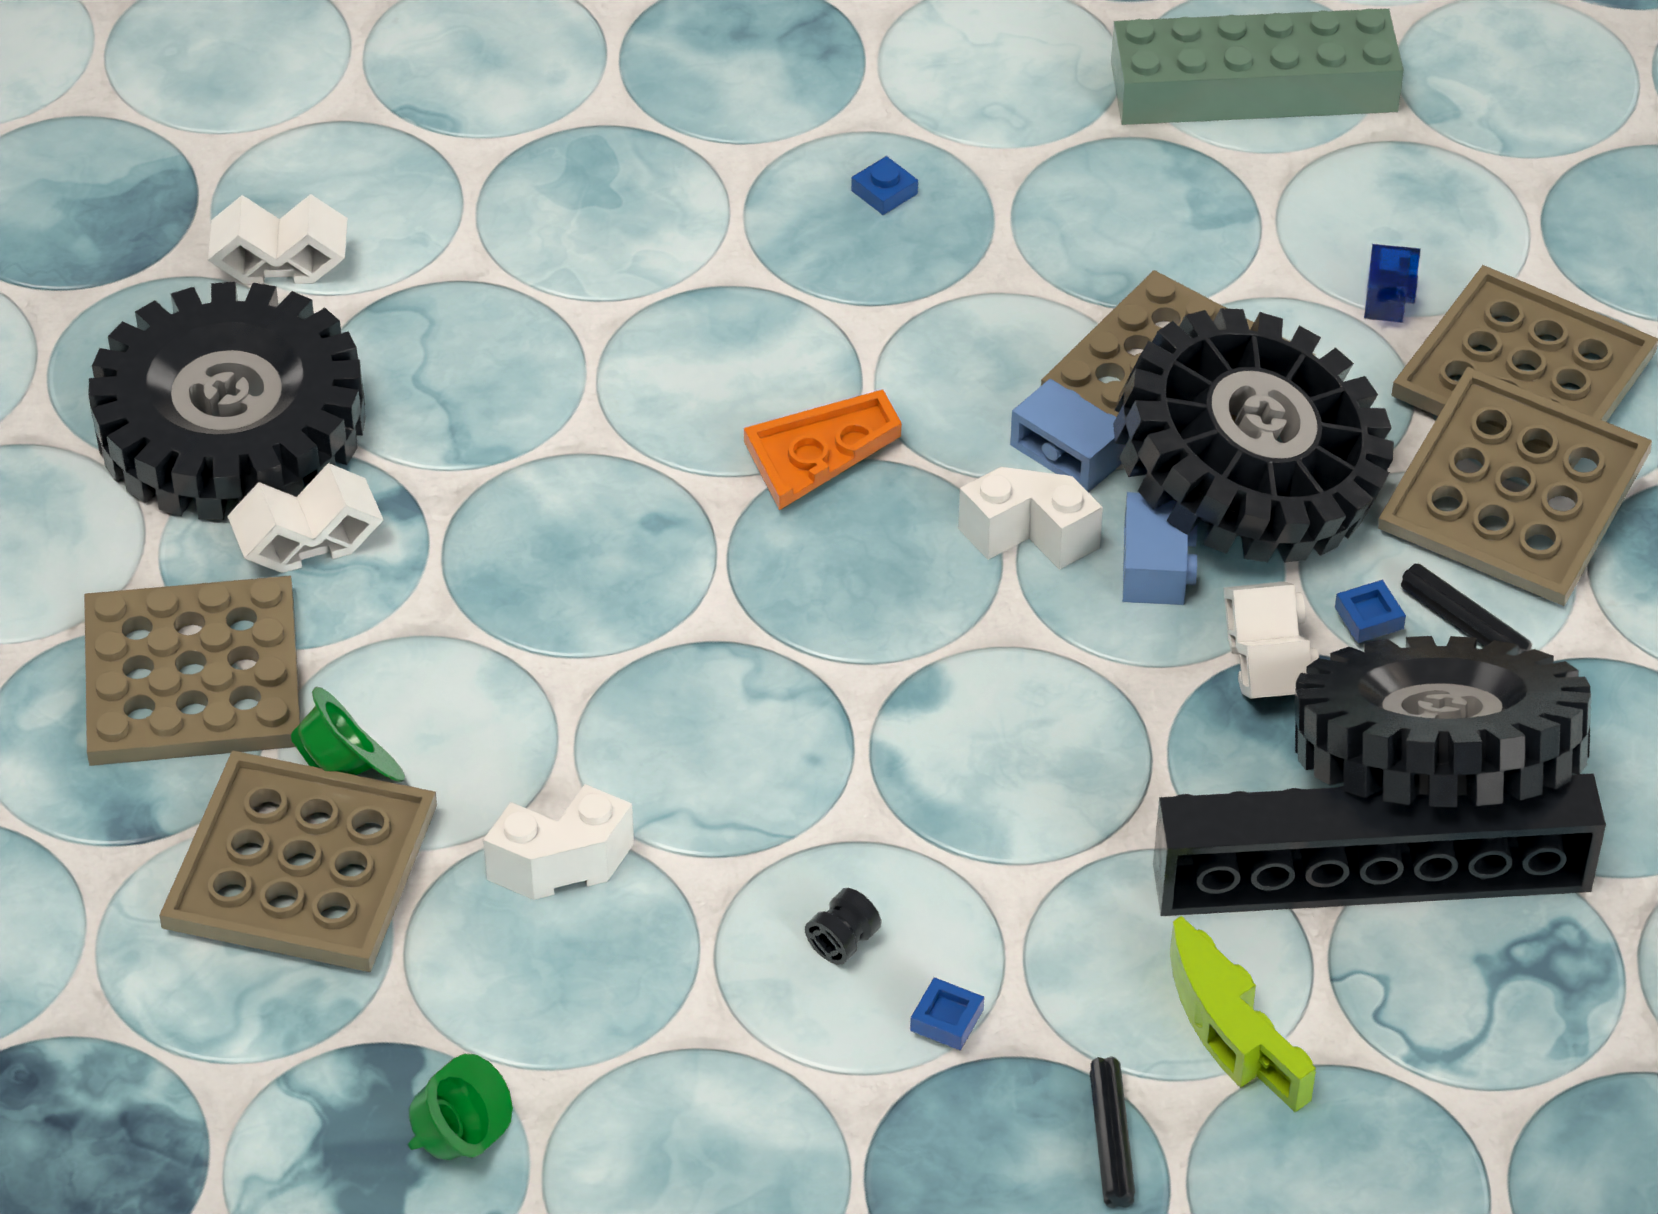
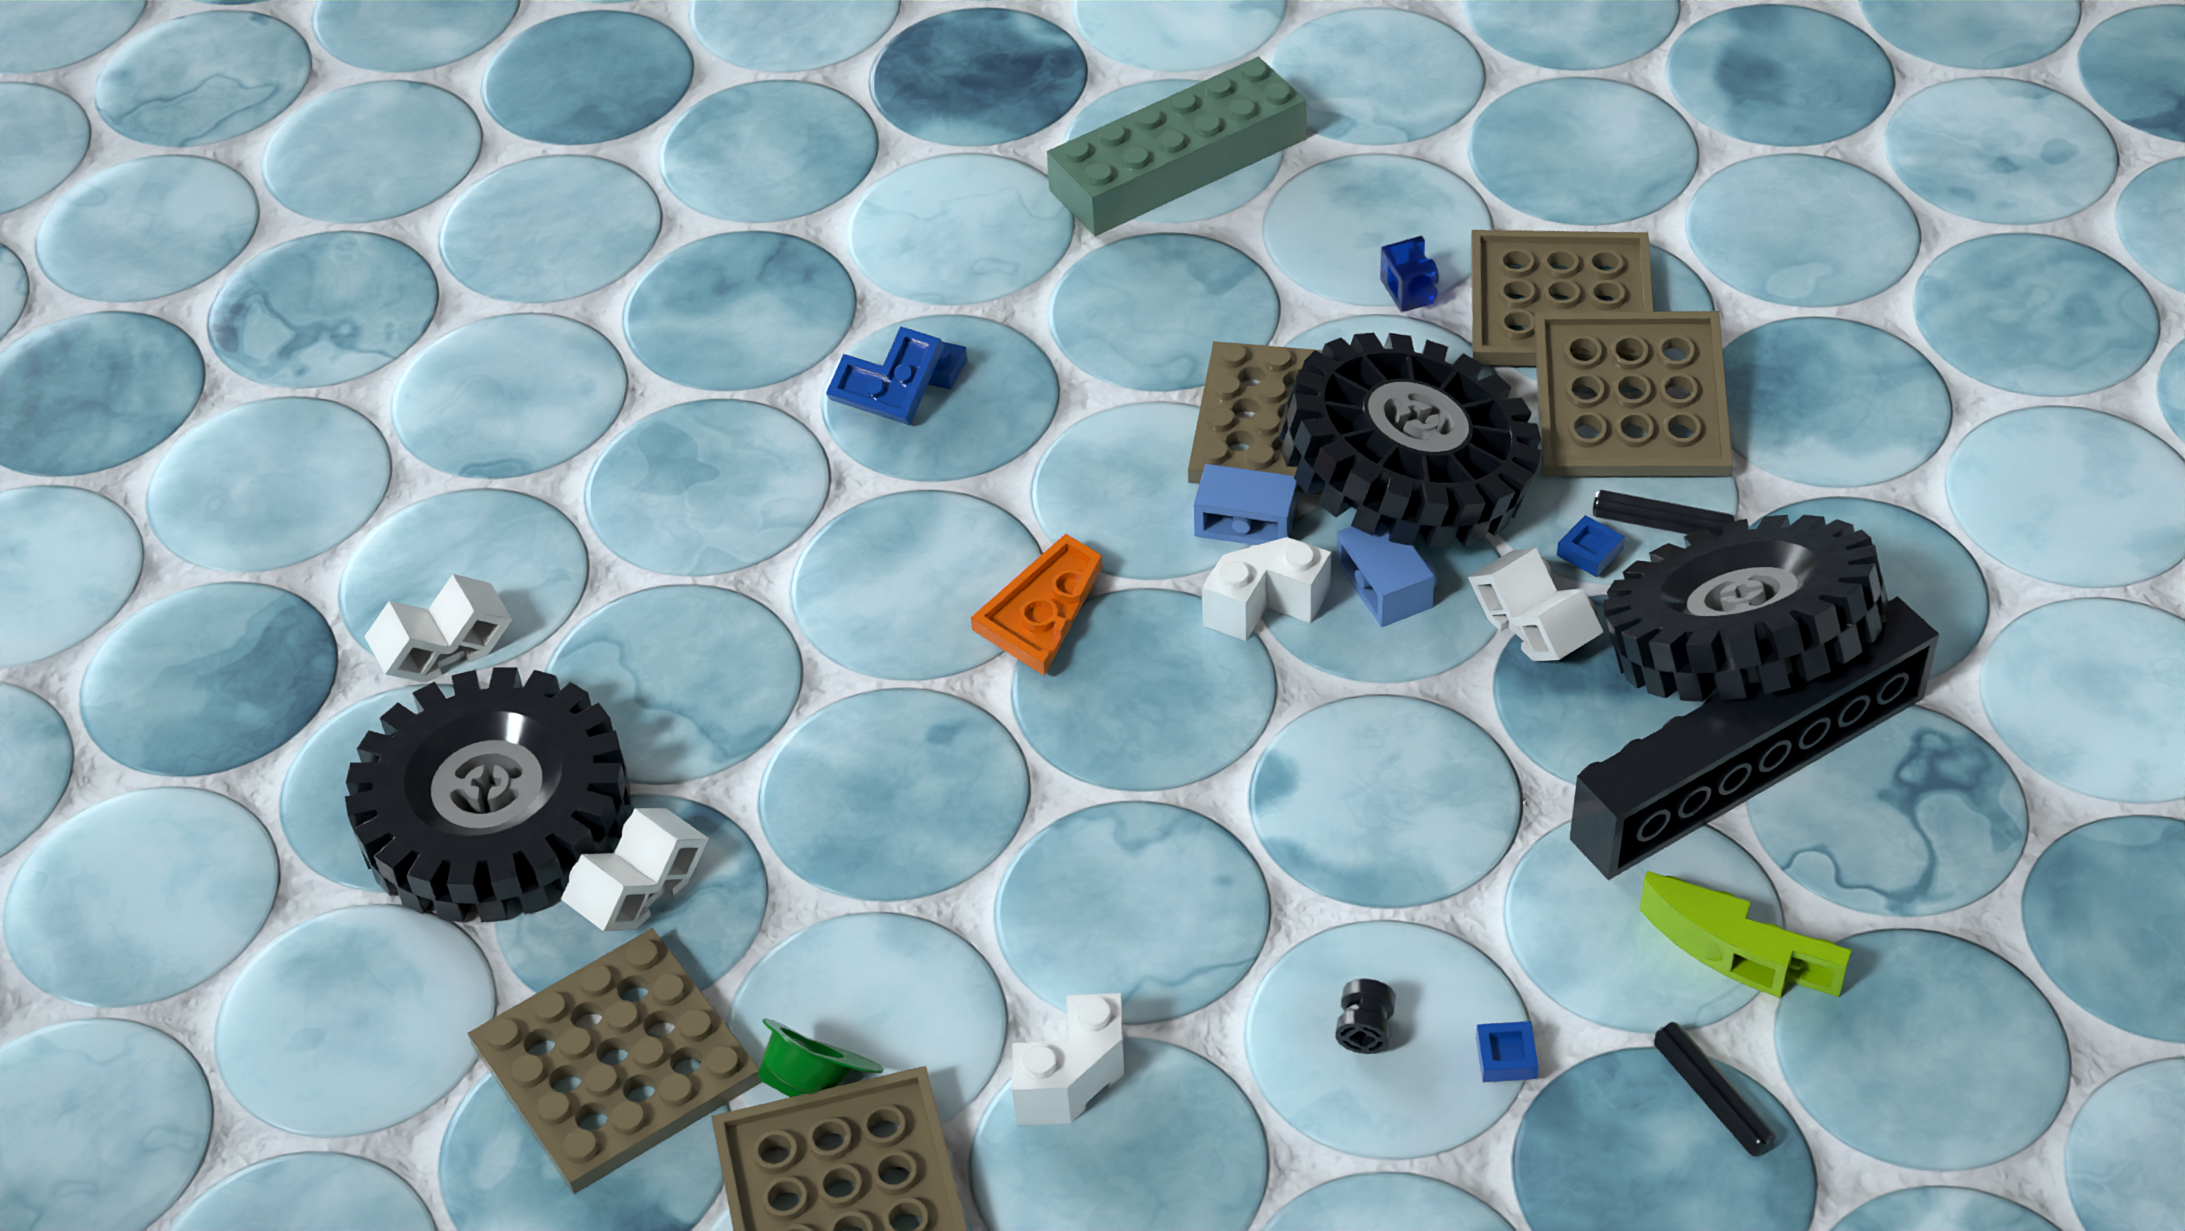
camera: 25 degrees left, 0 degrees up
(826, 189) = (896, 386): none -> blue plate

